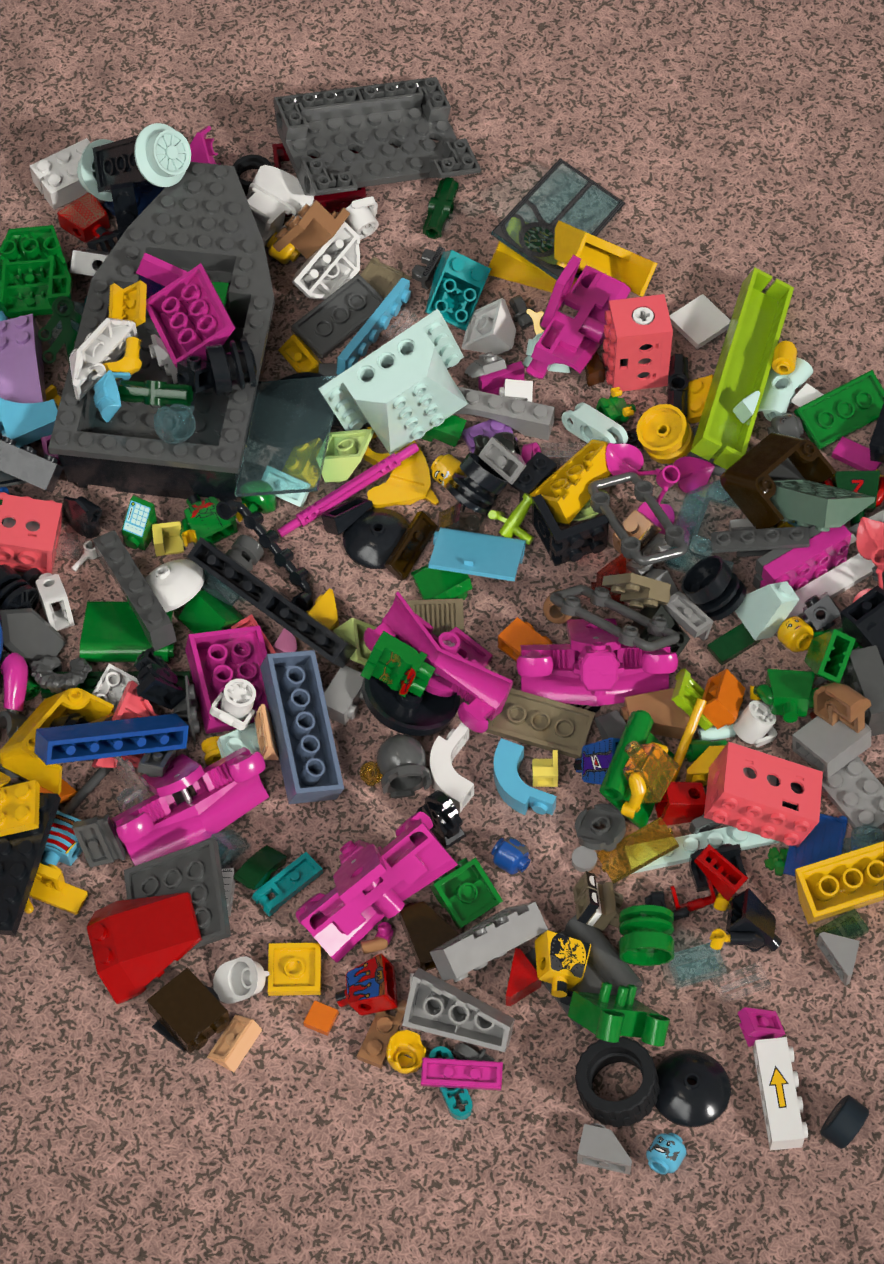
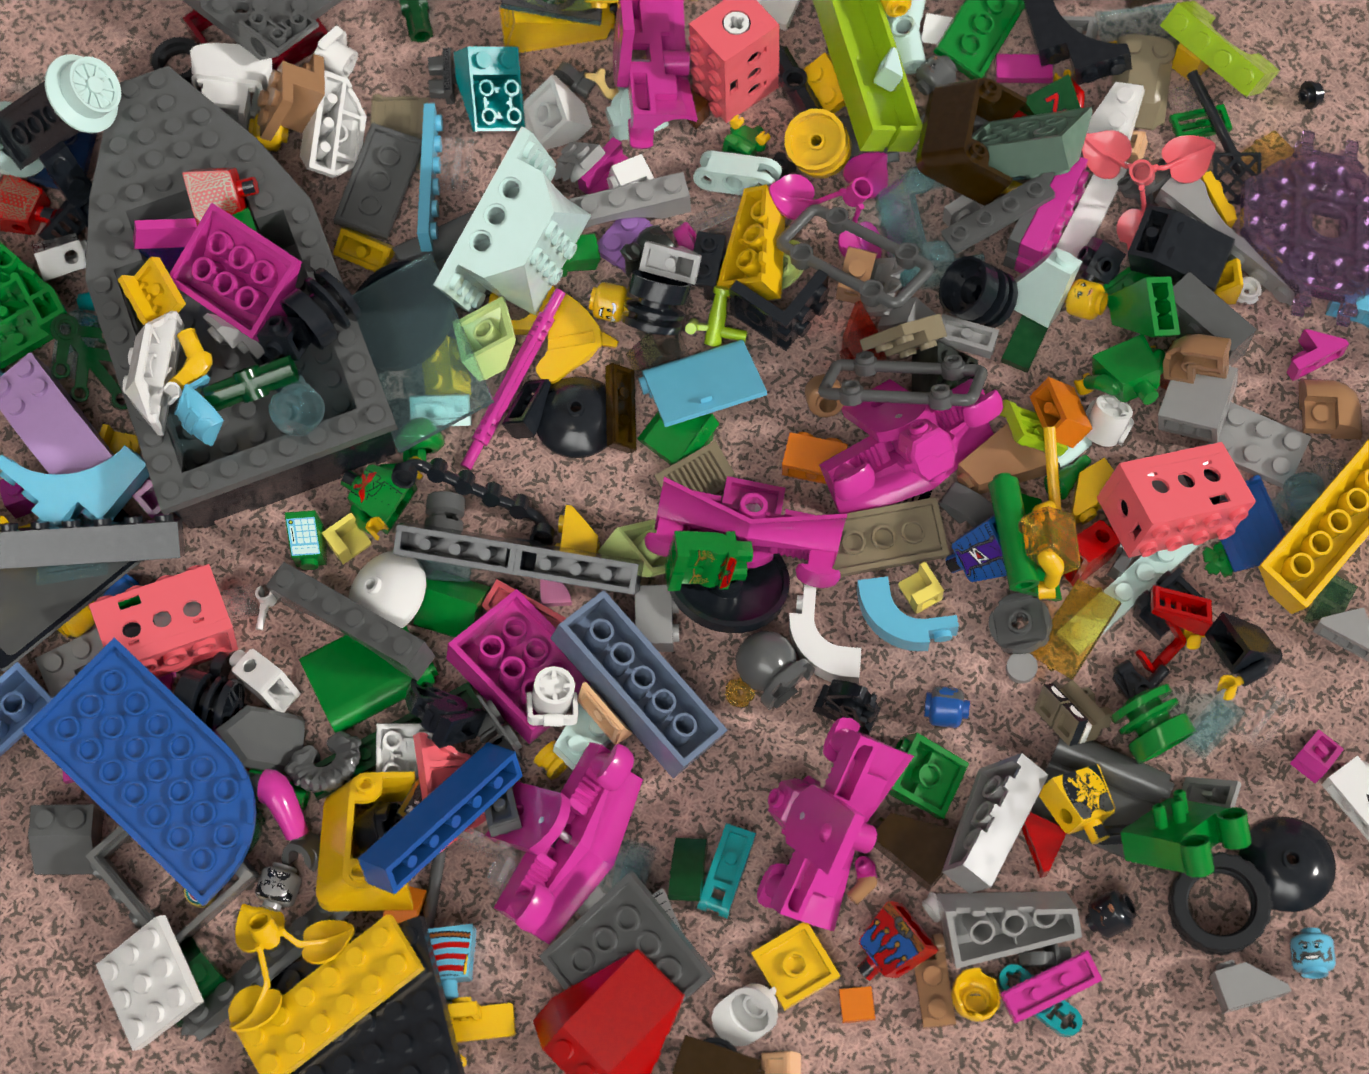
camera: 25 degrees left, 10 degrees up
(82, 516) = (236, 563): black panel -> none
(99, 840) = (493, 939): dark grey plate -> none
(202, 148) = (110, 57): dark pink slope -> none
(216, 260) = (219, 187): none -> torso
(537, 1050) = (1111, 914): none -> black head
(668, 1008) = (1212, 791): none -> light grey slope

